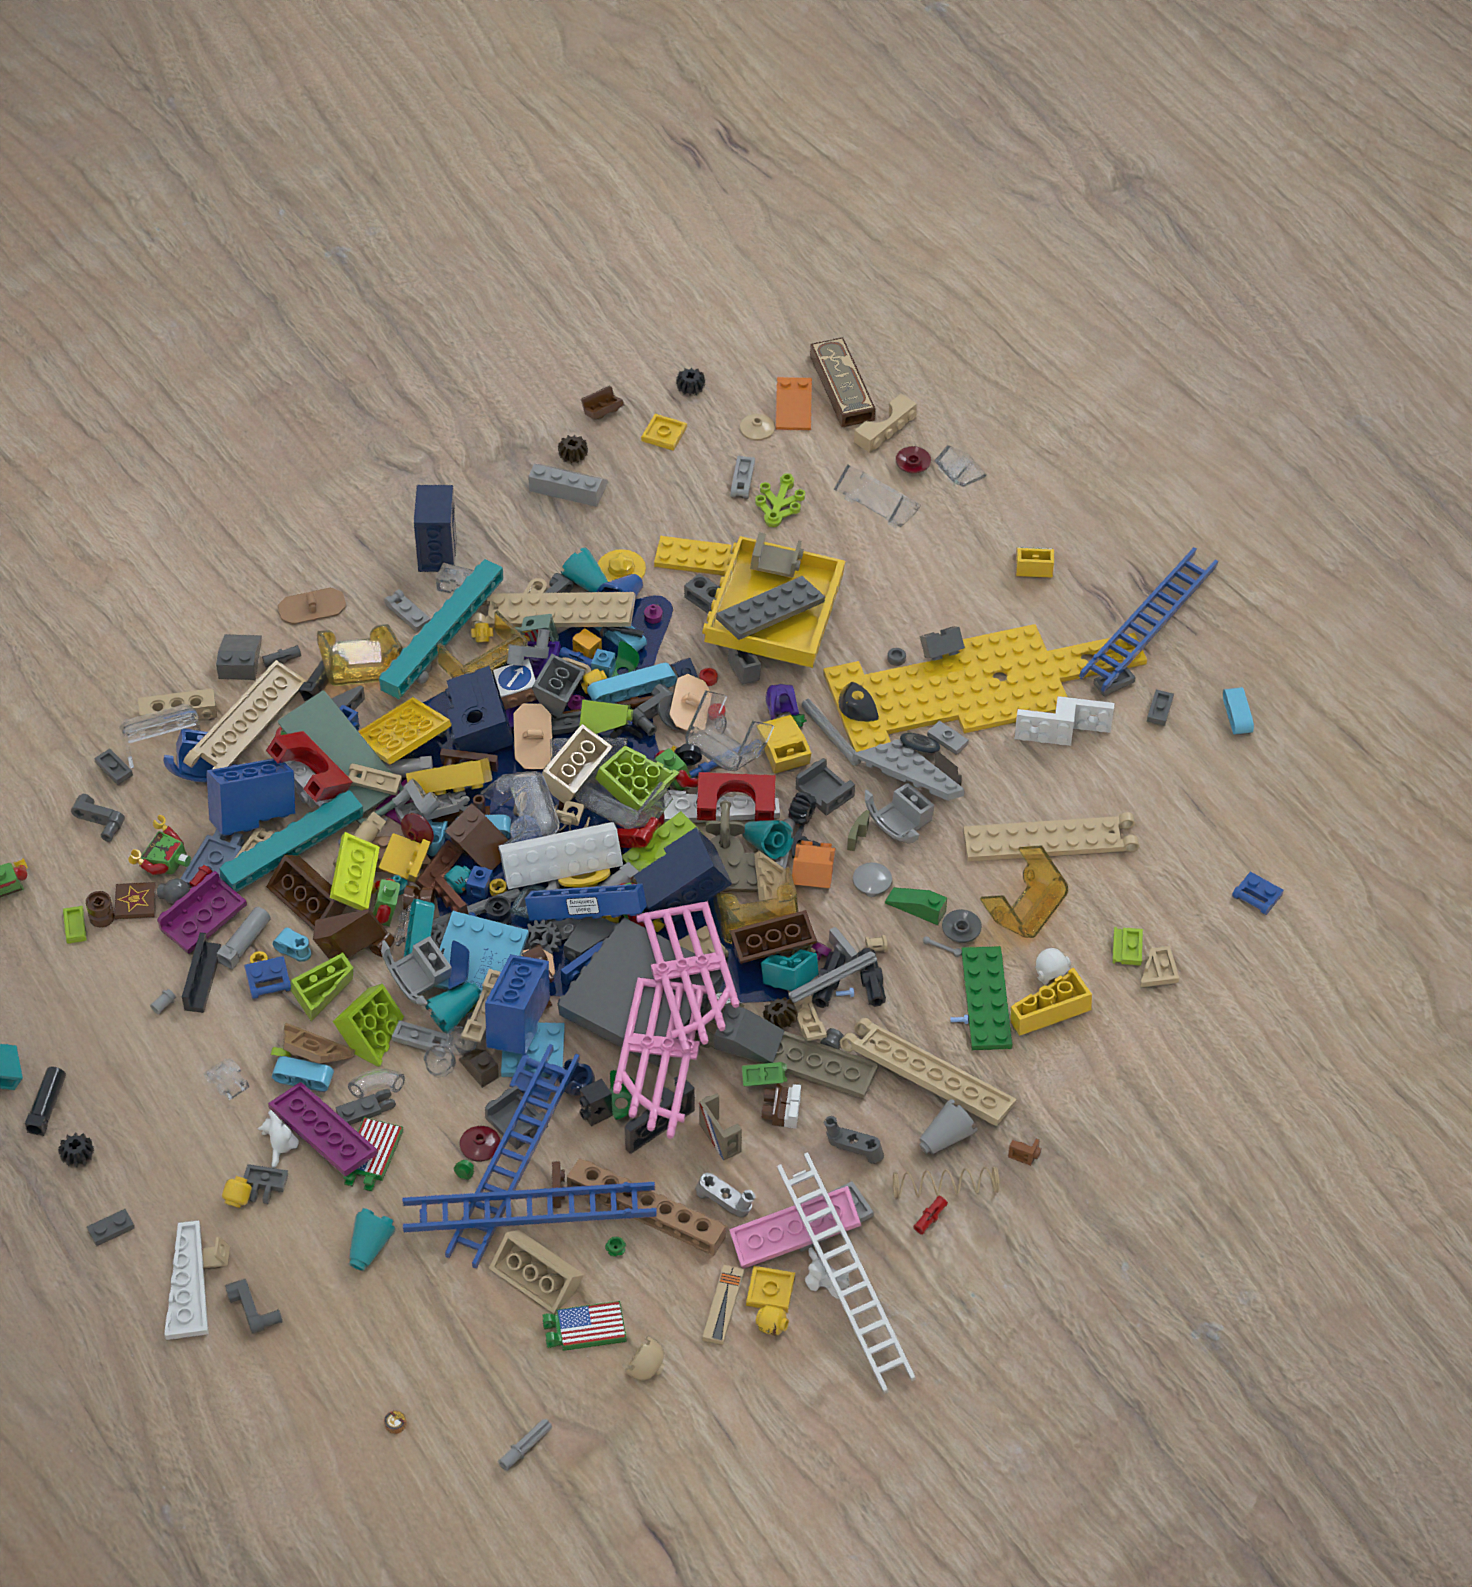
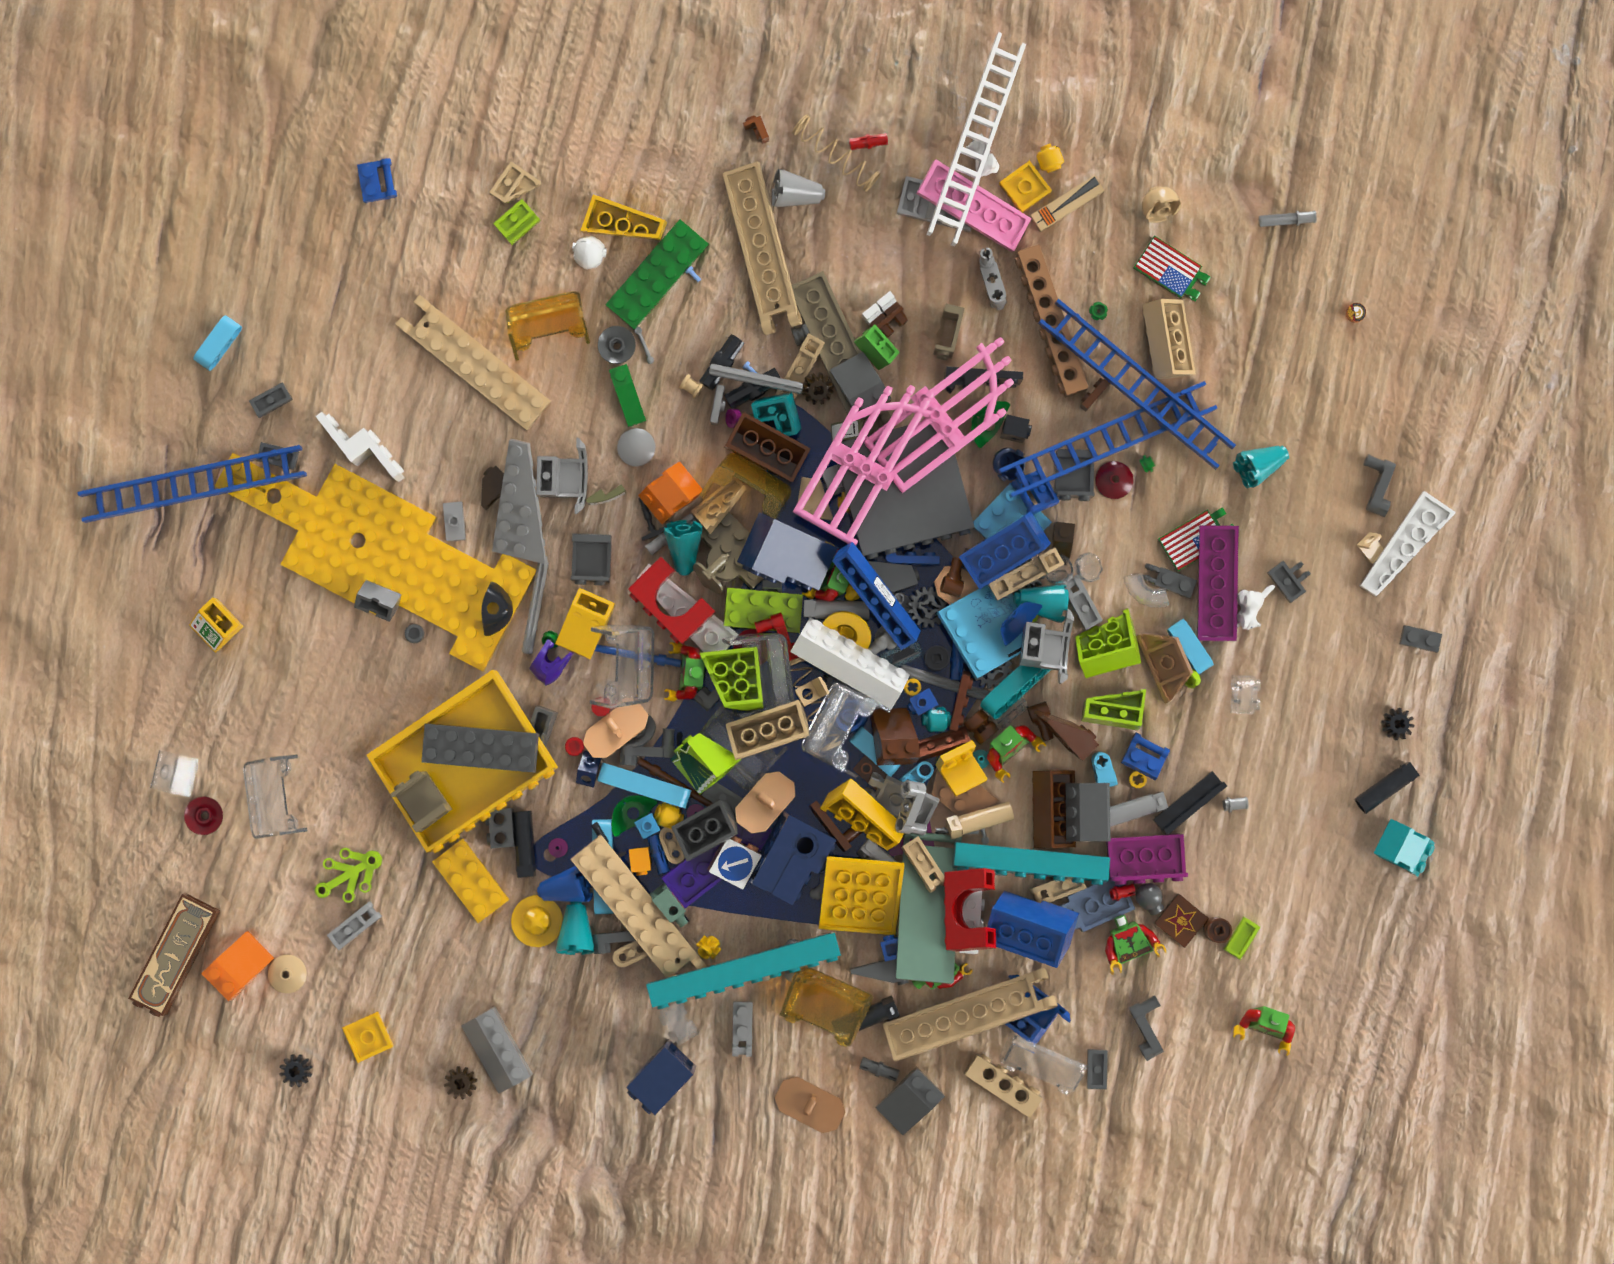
camera: 140 degrees left, 35 degrees up
(236, 1192) = (1318, 584): yellow head -> none
(280, 902) = (1087, 811): none -> dark grey slope
(354, 872) = (1012, 785): neon yellow plate -> none
(416, 828) = (937, 781): dark red dish -> none
(494, 658) = (734, 900): clear yellow windscreen -> none
(540, 650) = (702, 878): light grey beam -> none
(601, 403) = (391, 1111): reddish brown bracket -> none
(678, 596) = (524, 844): none -> black piece
(689, 754) = (665, 678): black plate -> none
(802, 808) = (630, 549): black gear -> none
(865, 1145) = (869, 252): dark grey beam -> none
(872, 435) = (209, 874): tan arch -> none
(920, 742) = (492, 528): wheel -> none

